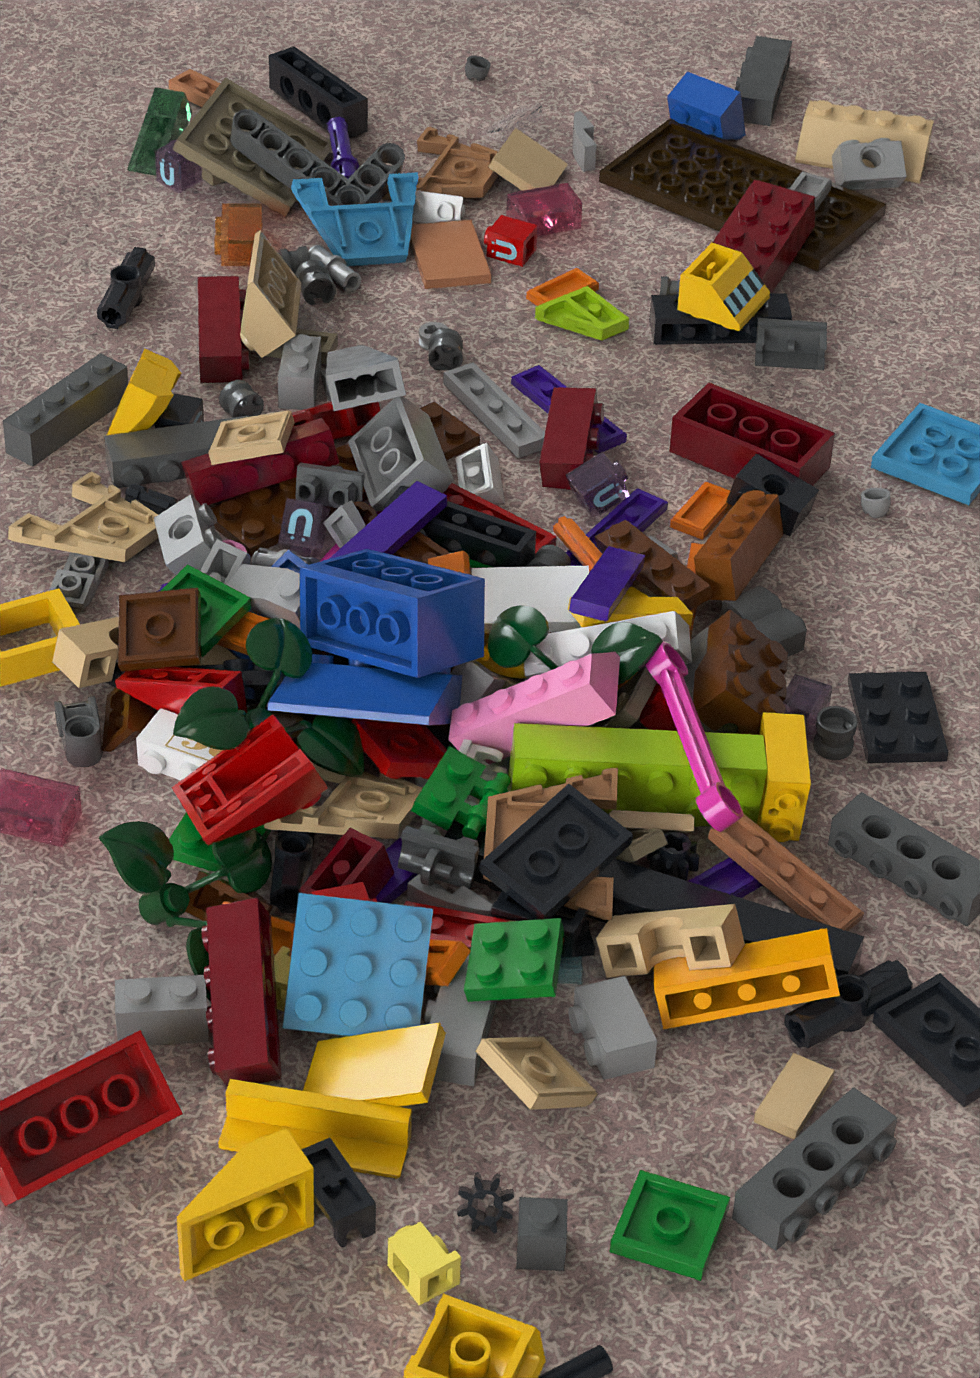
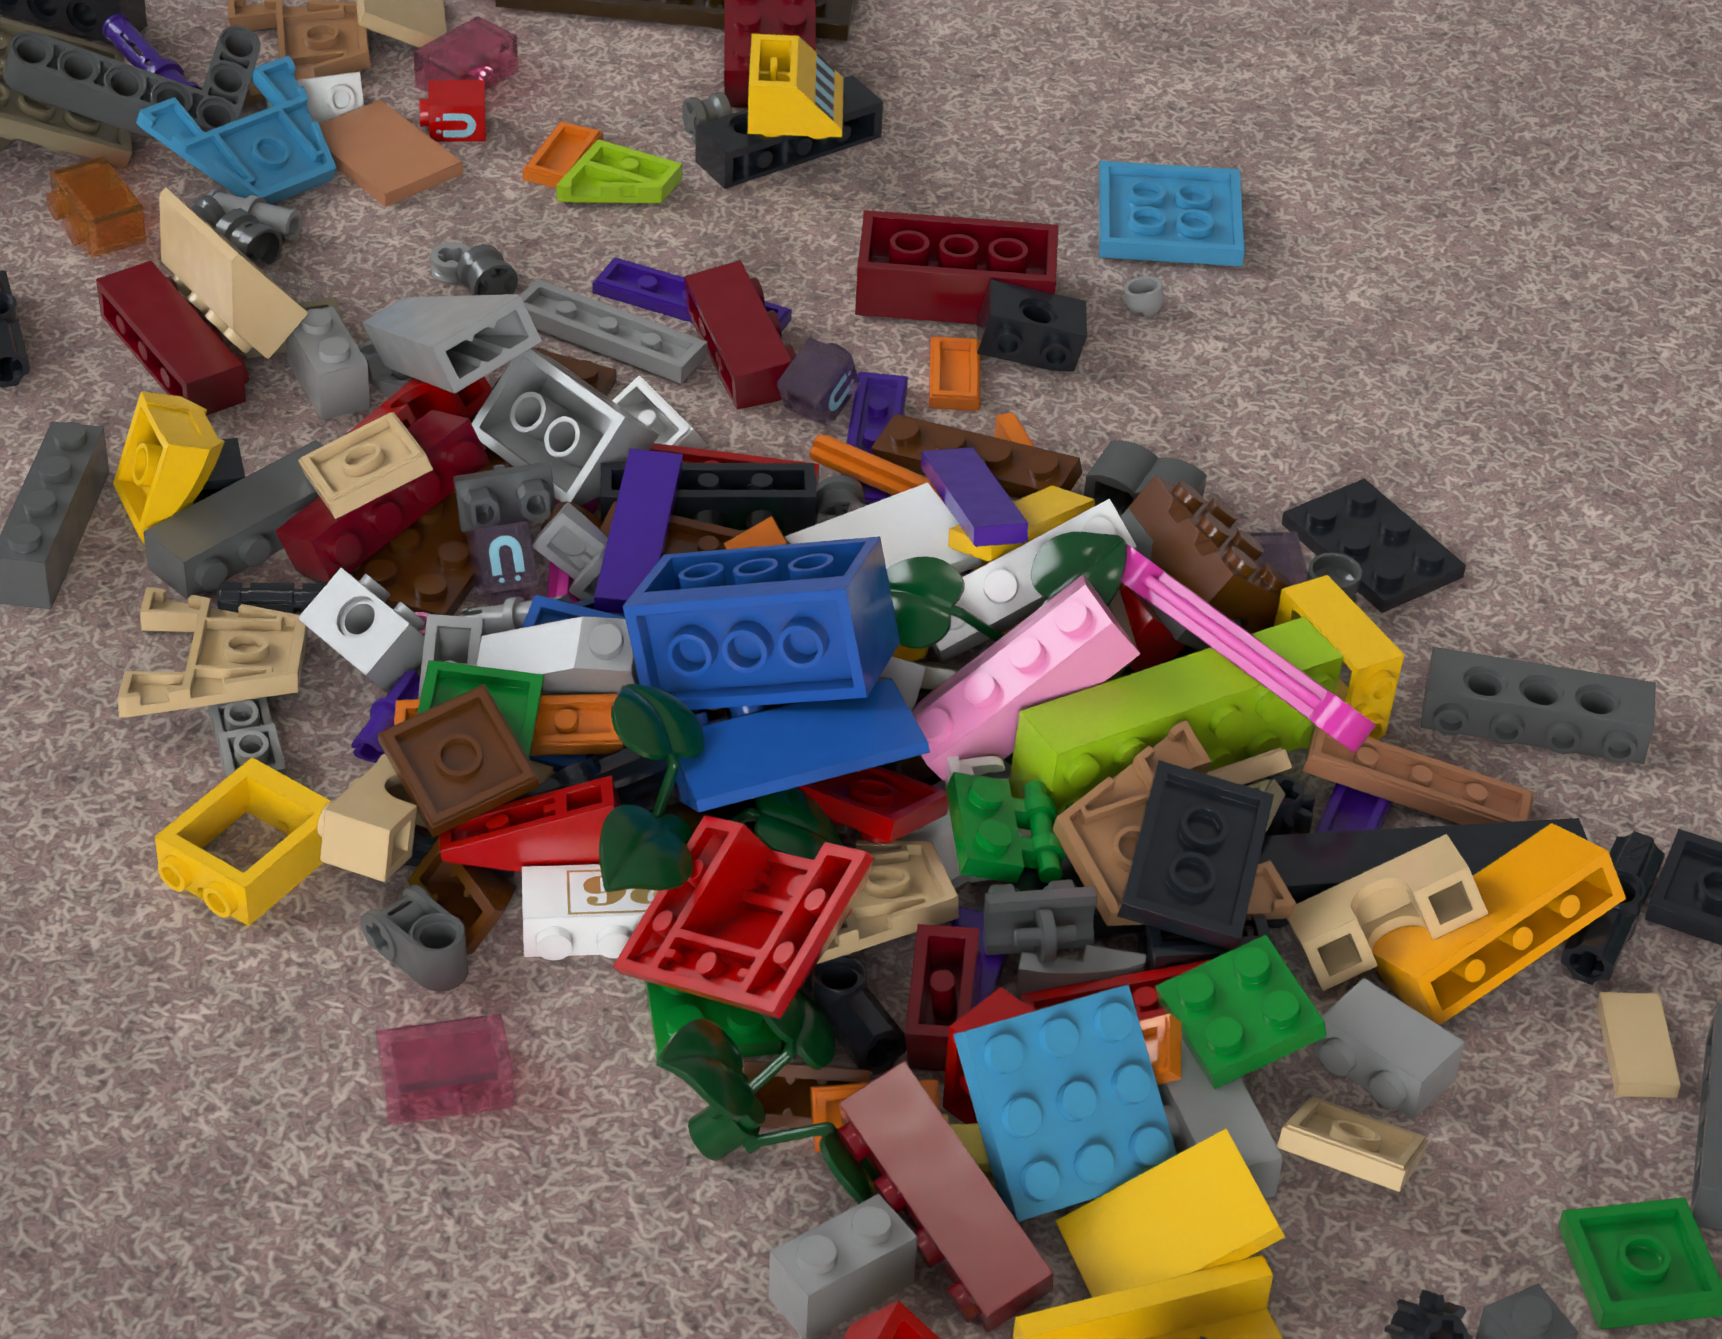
camera: 30 degrees left, 0 degrees up
(240, 399) = (277, 426): dark grey wheel -> none
(740, 544) = (1055, 394): dark orange brick -> none
(790, 344) = (894, 136): dark grey hinge -> none

